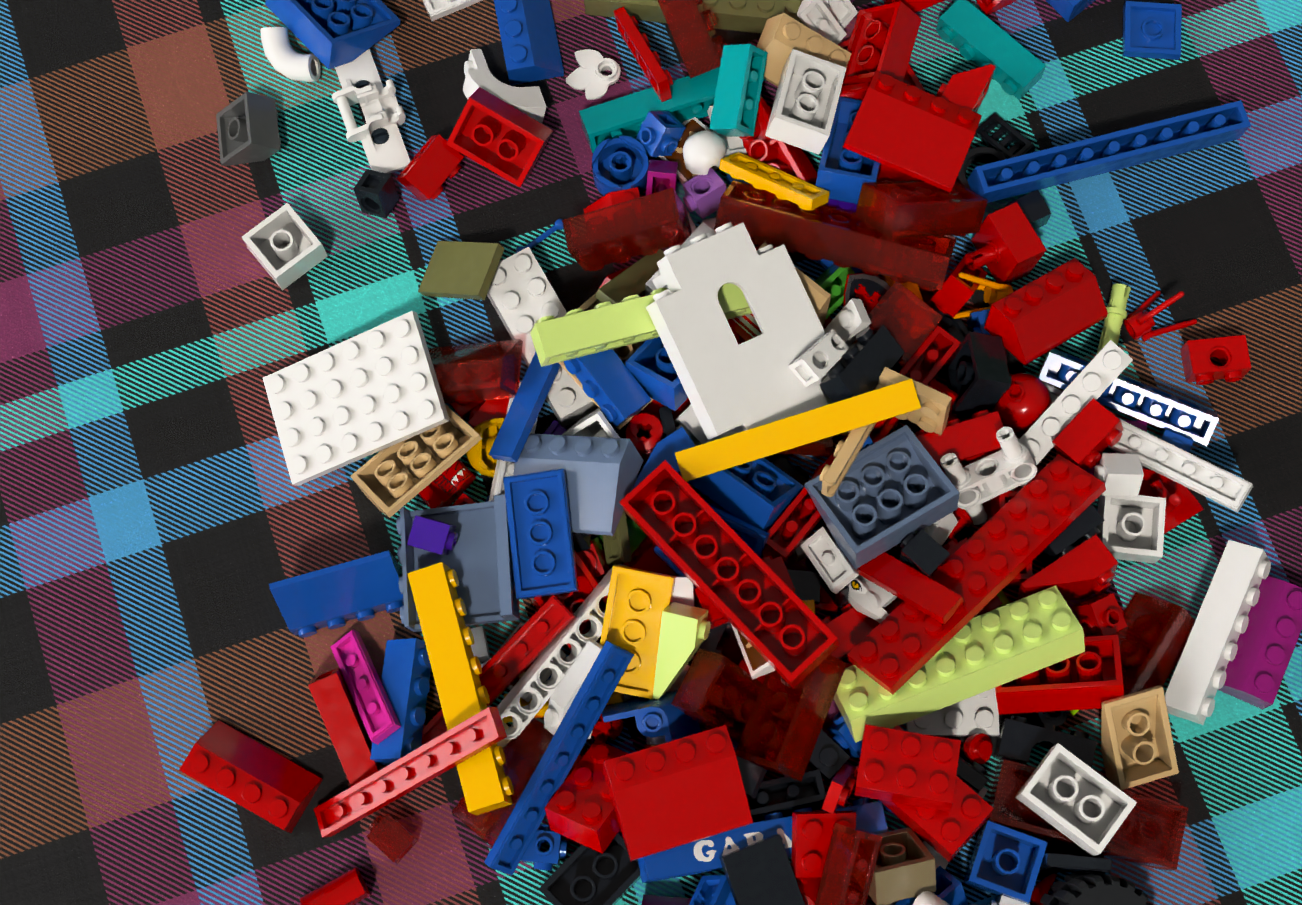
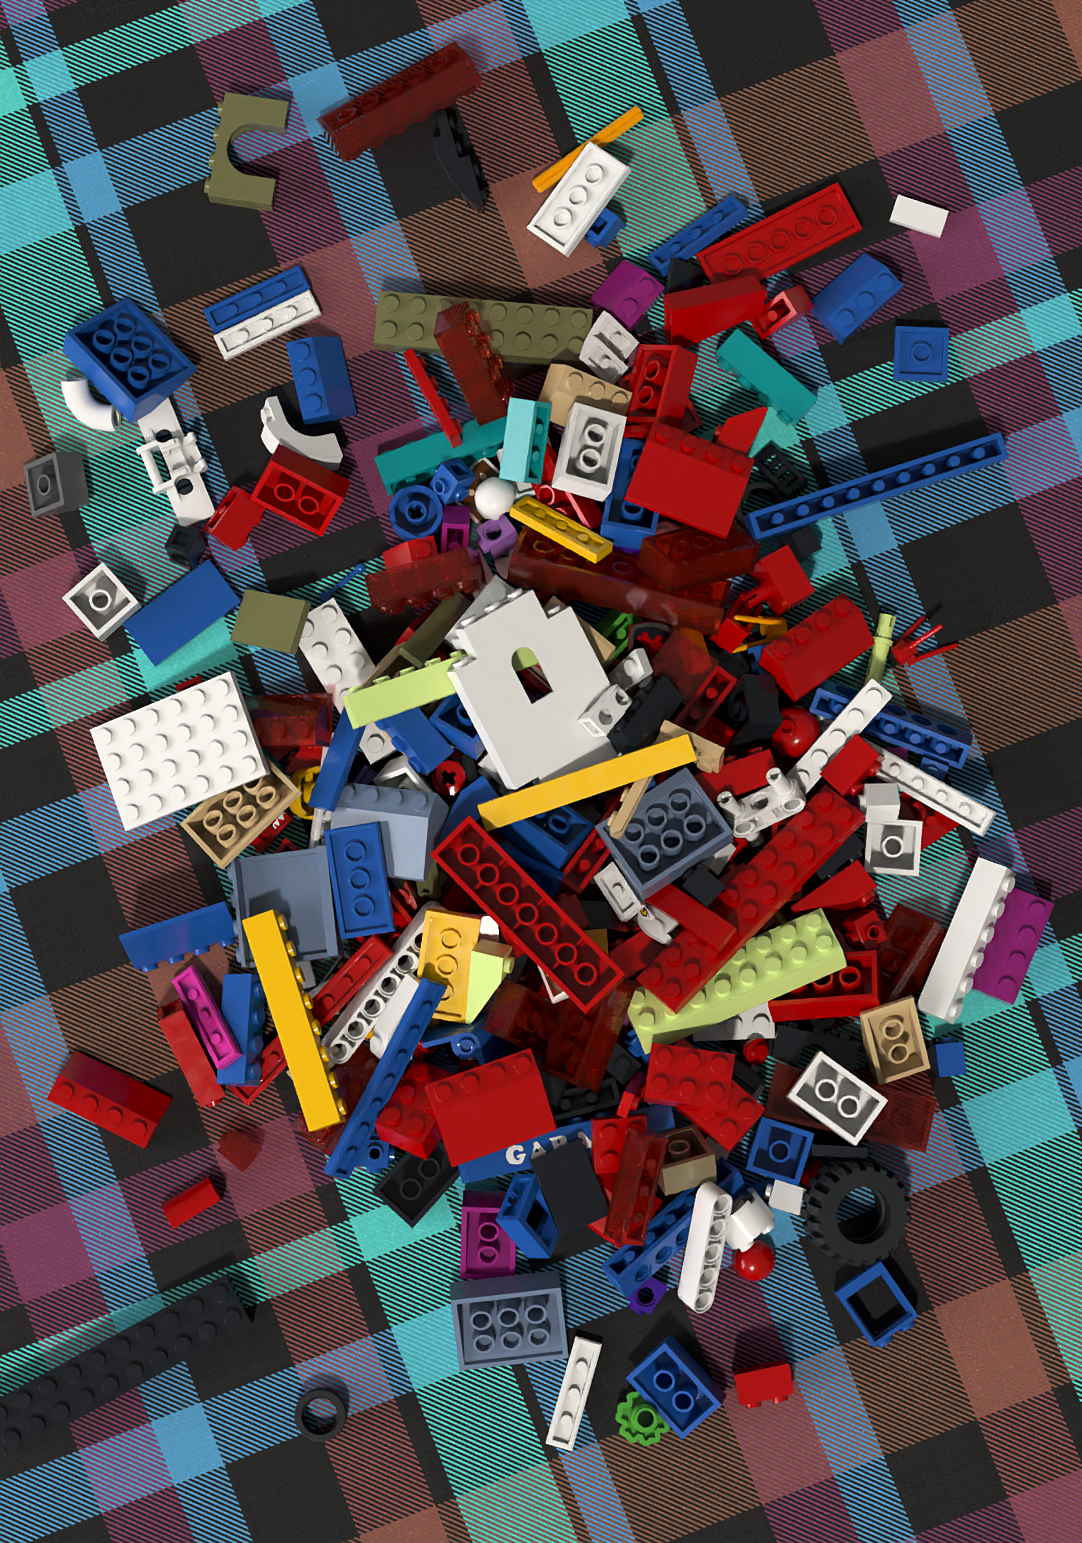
camera: 10 degrees left, 10 degrees up
(369, 263) = (182, 613): none -> blue tile
(410, 771) = (254, 1097): plate -> none
(432, 535) = (261, 883): dark purple brick -> none
(589, 74) = (381, 415): white plate -> none
(1198, 764) = (949, 1057): none -> blue brick
(1231, 352) = (986, 674): red brick -> none

